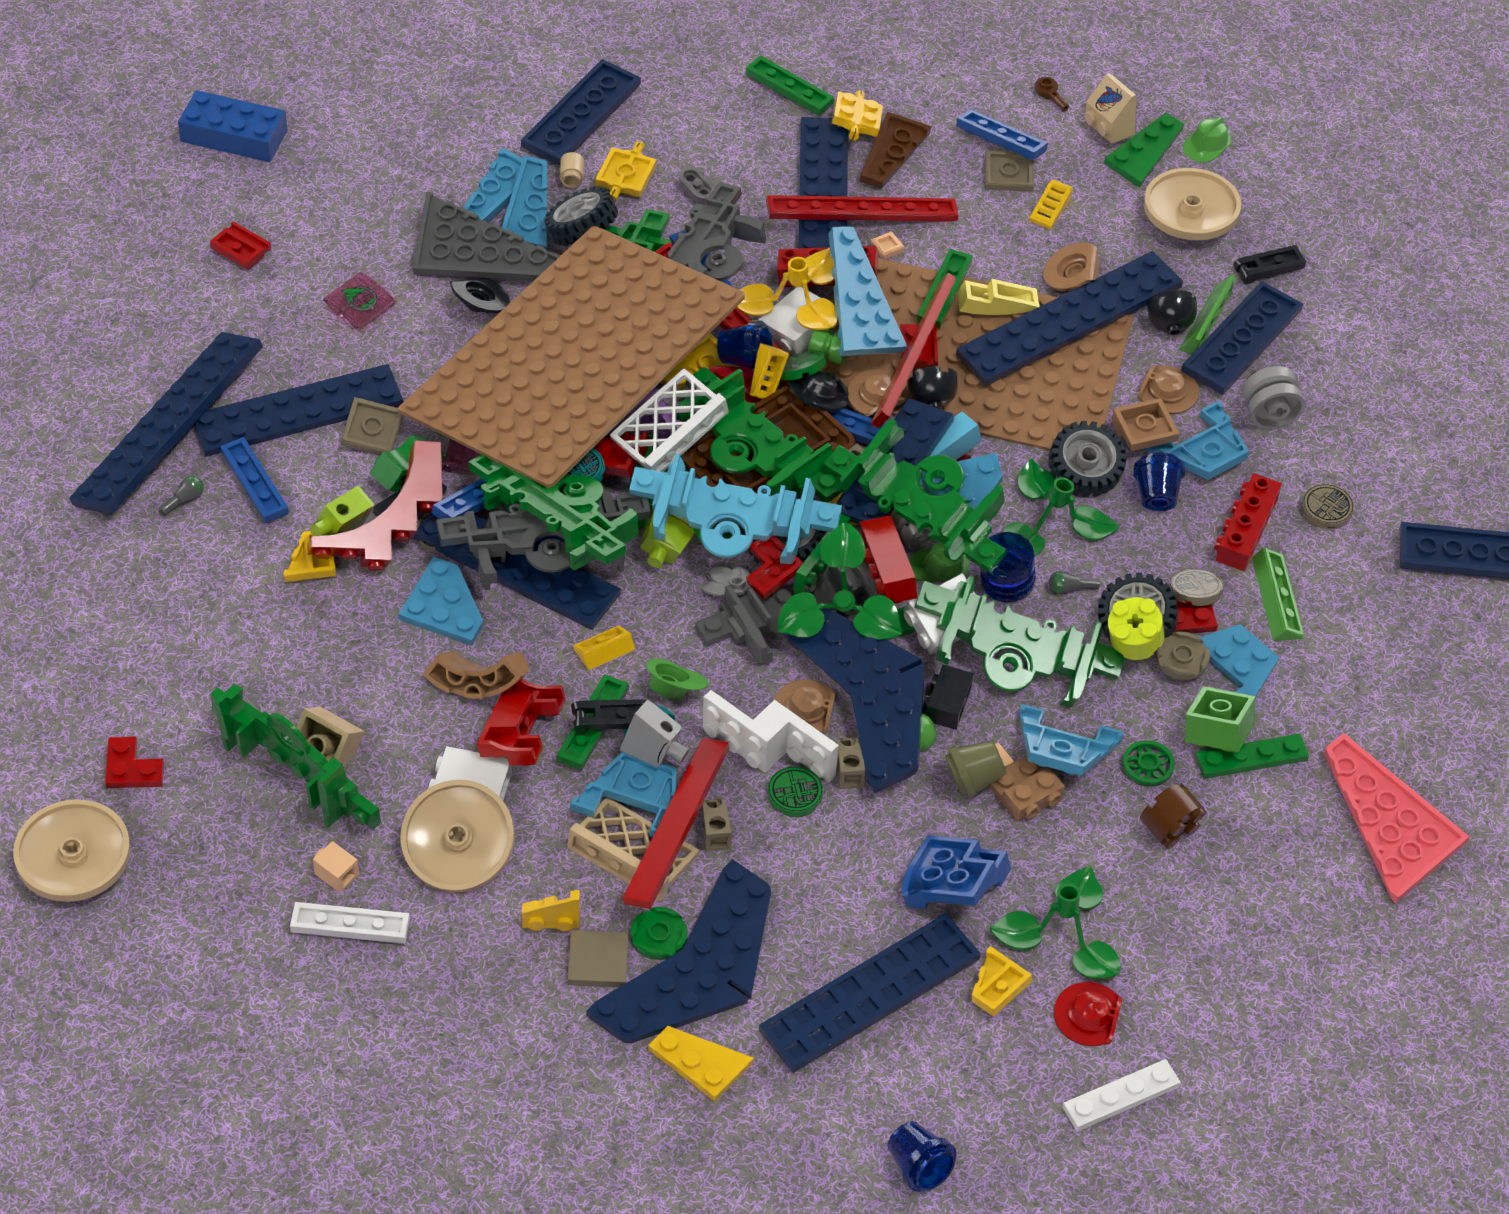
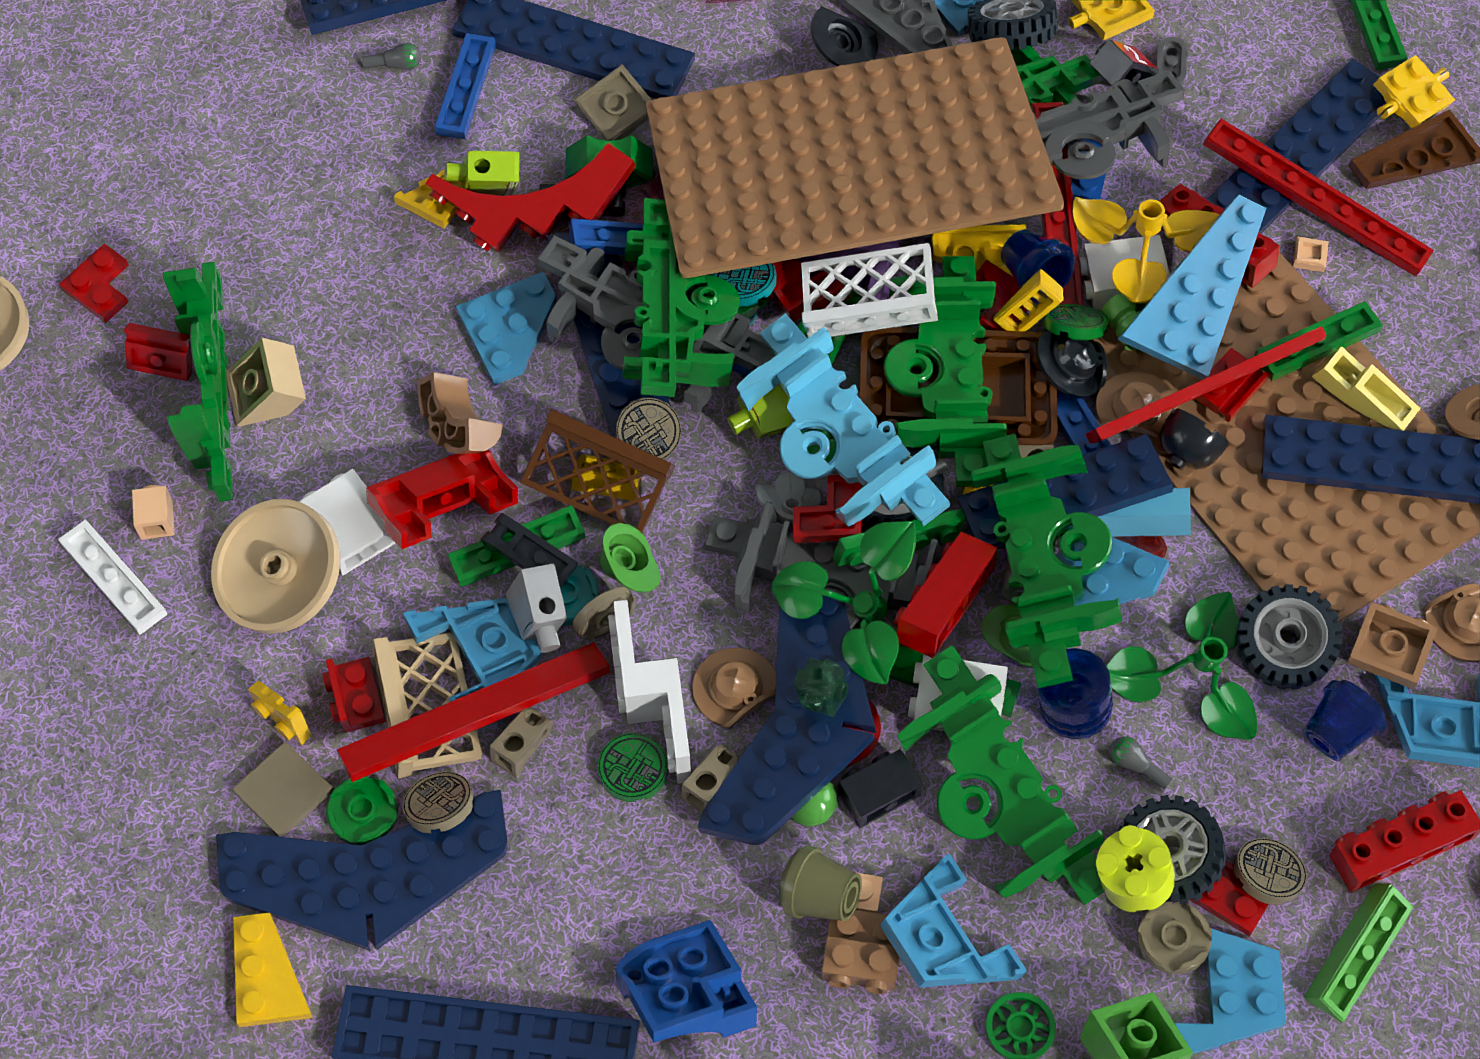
camera: 45 degrees right, 10 degrees up
(230, 771) = (158, 351): none -> red plate
(583, 874) = (355, 694): none -> red bracket
(599, 620) = (608, 446): none -> reddish brown fence
(606, 599) = (649, 426): none -> tile
(675, 201) = (1121, 61): none -> black brick
(694, 716) = (593, 619): none -> dark tan tile
(704, 890) = (438, 802): none -> dark tan tile
(874, 654) = (821, 686): none -> clear green brick

